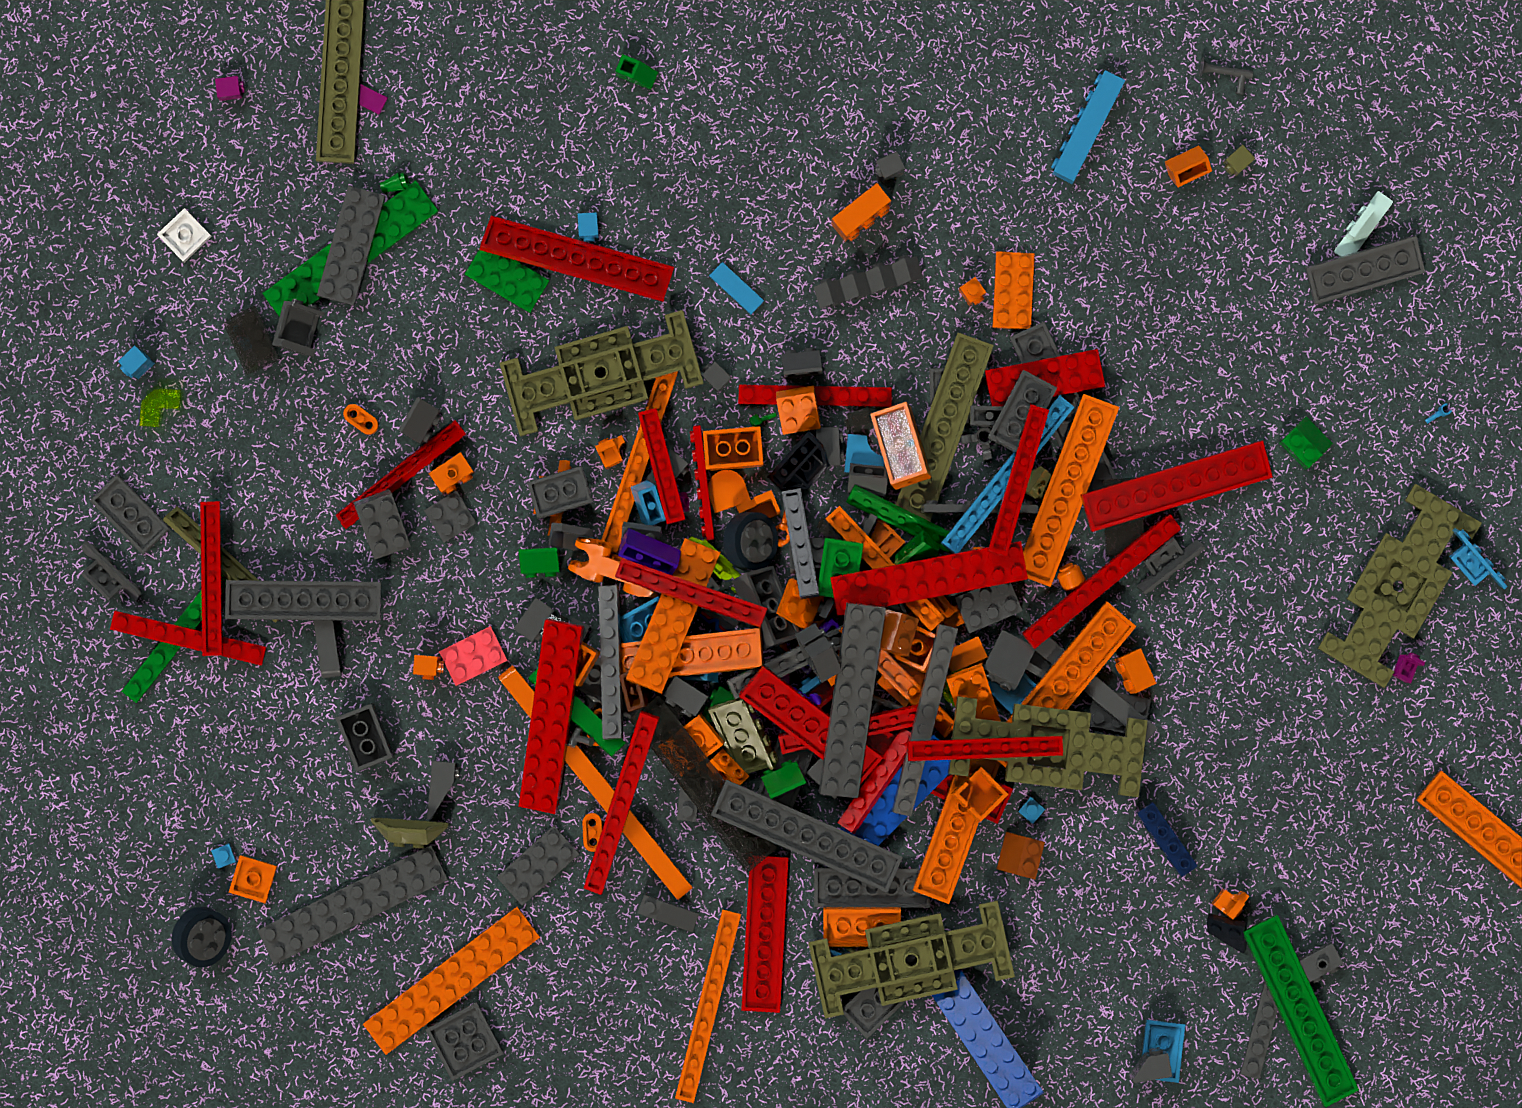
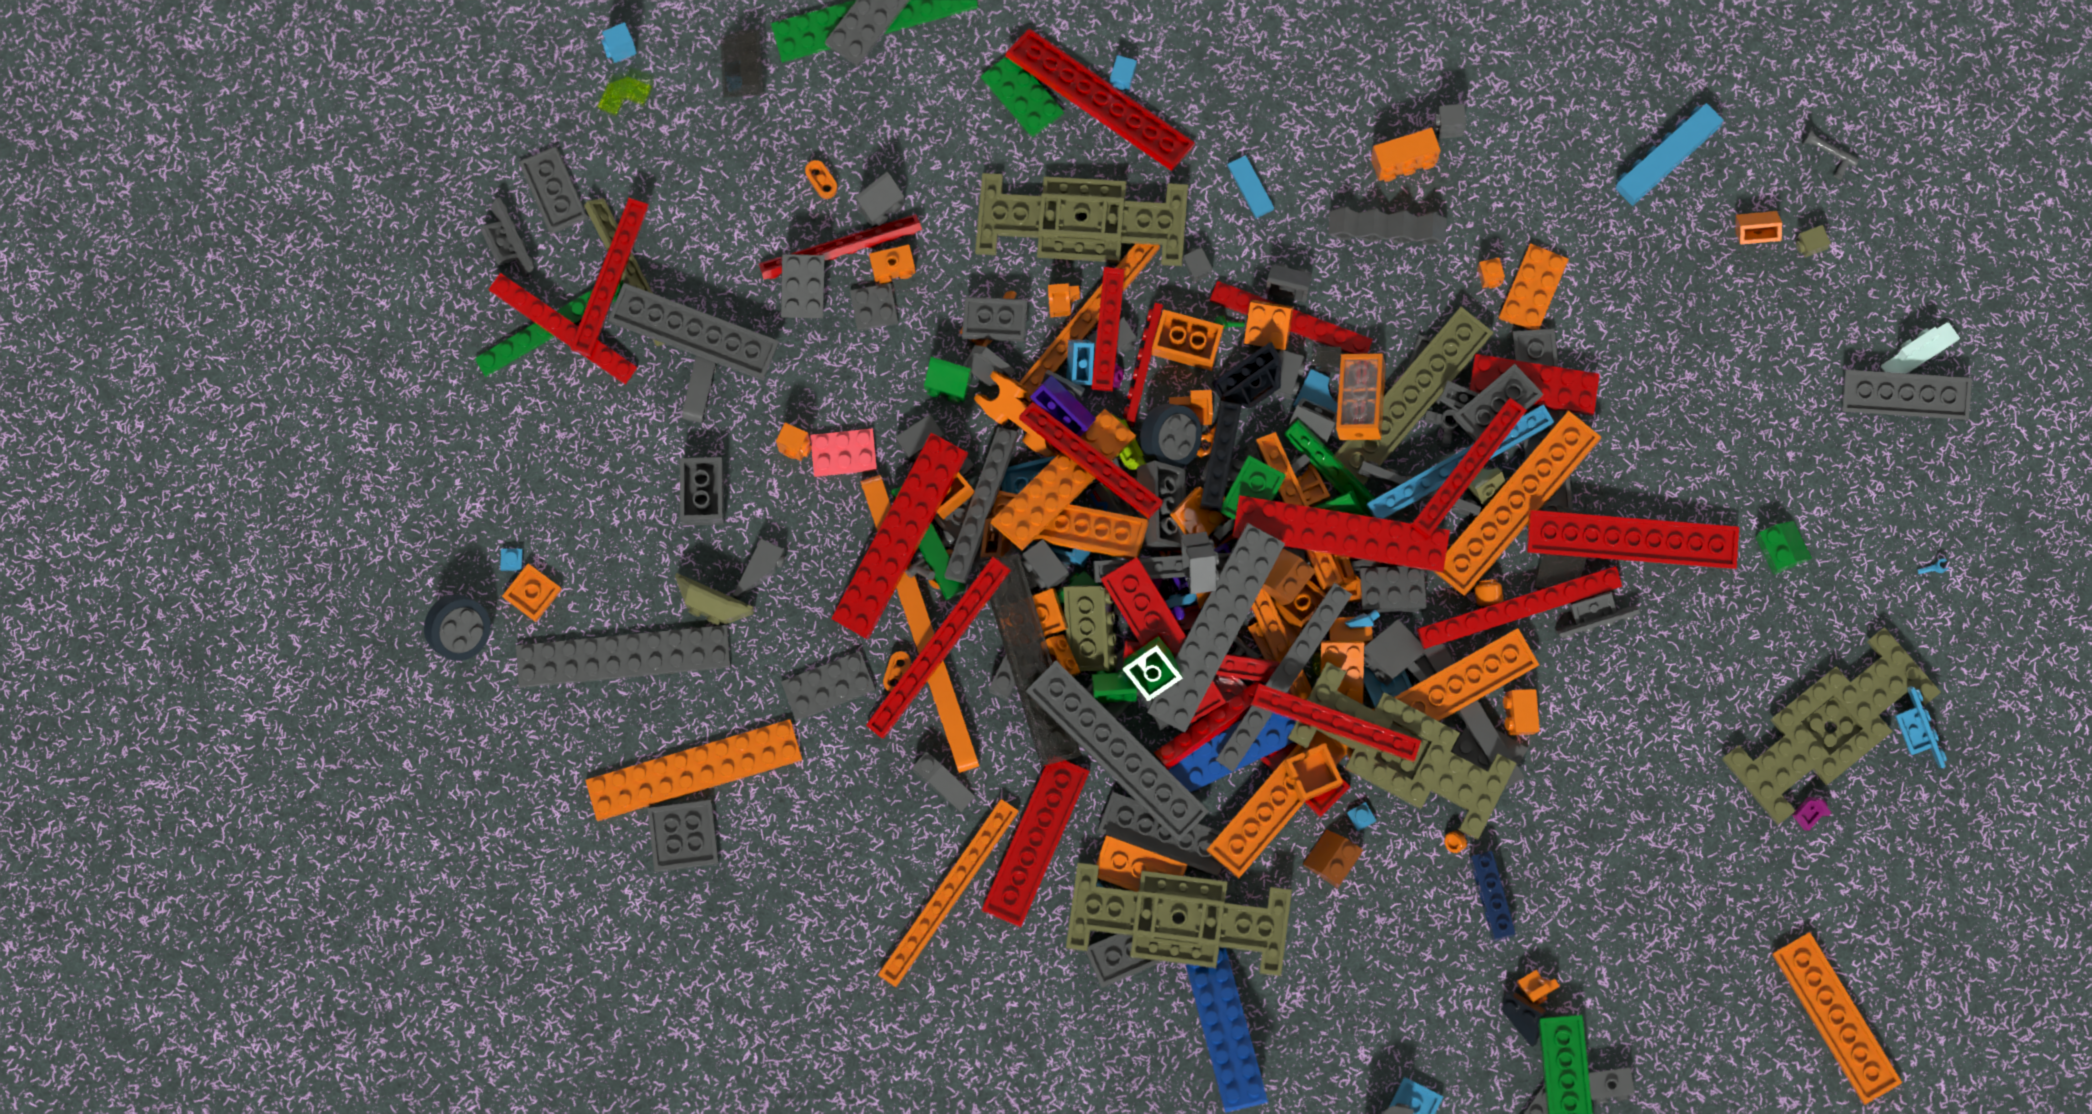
camera: 20 degrees right, 10 degrees down
(297, 327) = (793, 66): dark grey panel -> none
(727, 490) = (1165, 380): orange tile -> none
(811, 756) = (1152, 668): none -> green slope
(973, 643) = (1363, 620): none -> dark azure bar
(1118, 803) = (1455, 841): none -> orange tile

